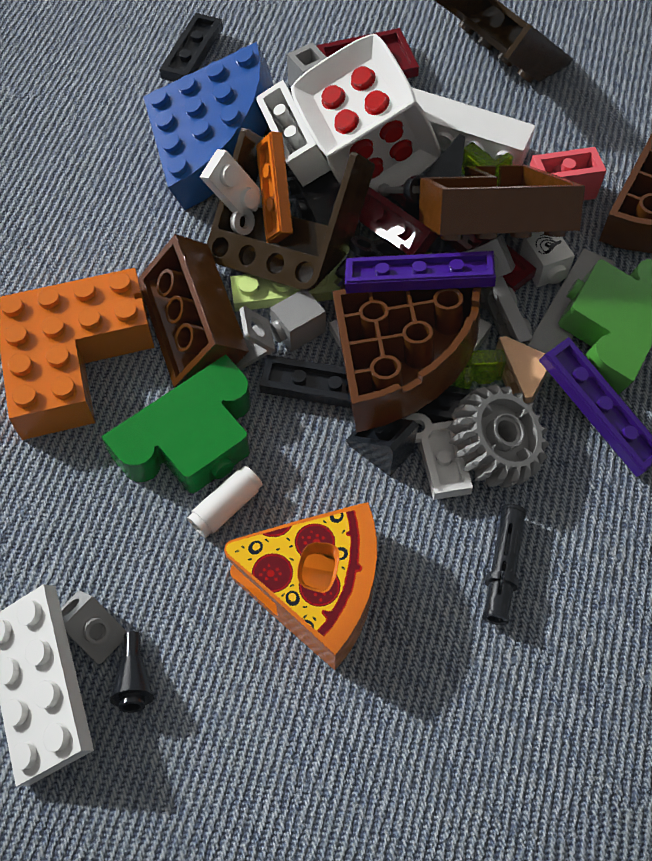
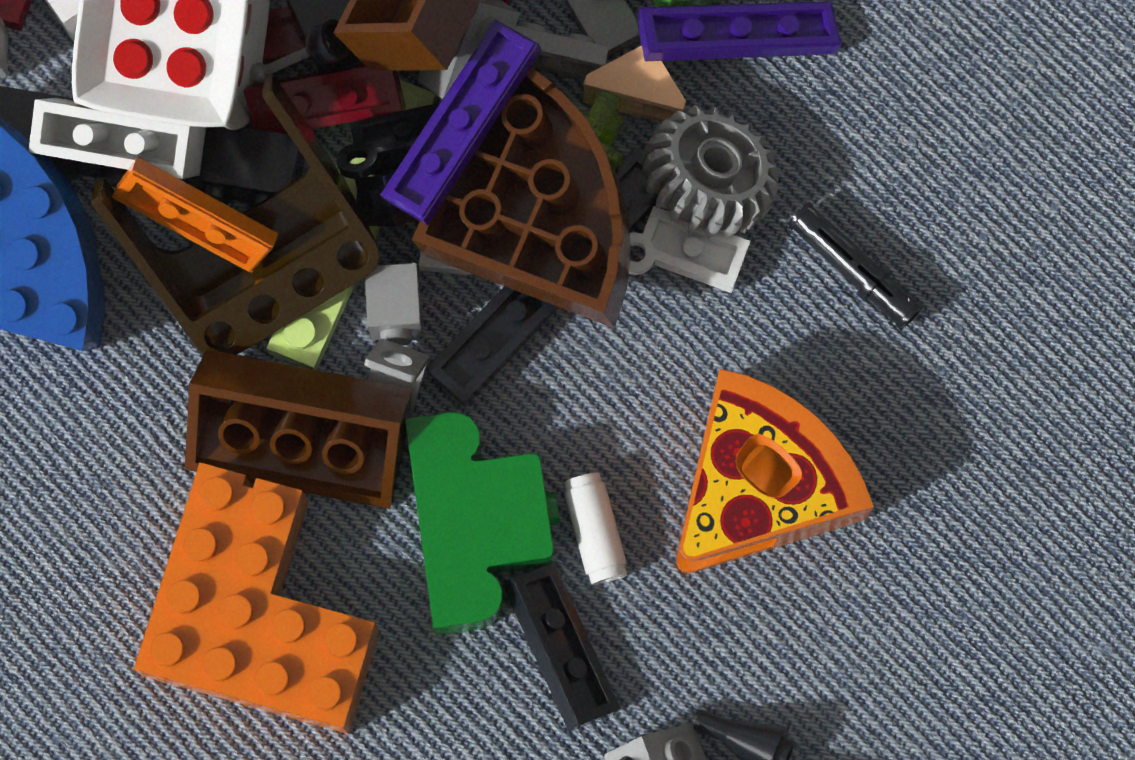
camera: 60 degrees left, 15 degrees up
(133, 522) = (561, 647): none -> black plate
(234, 189) = (166, 268): white hinge -> none
(386, 445) = (643, 307): black slope -> none

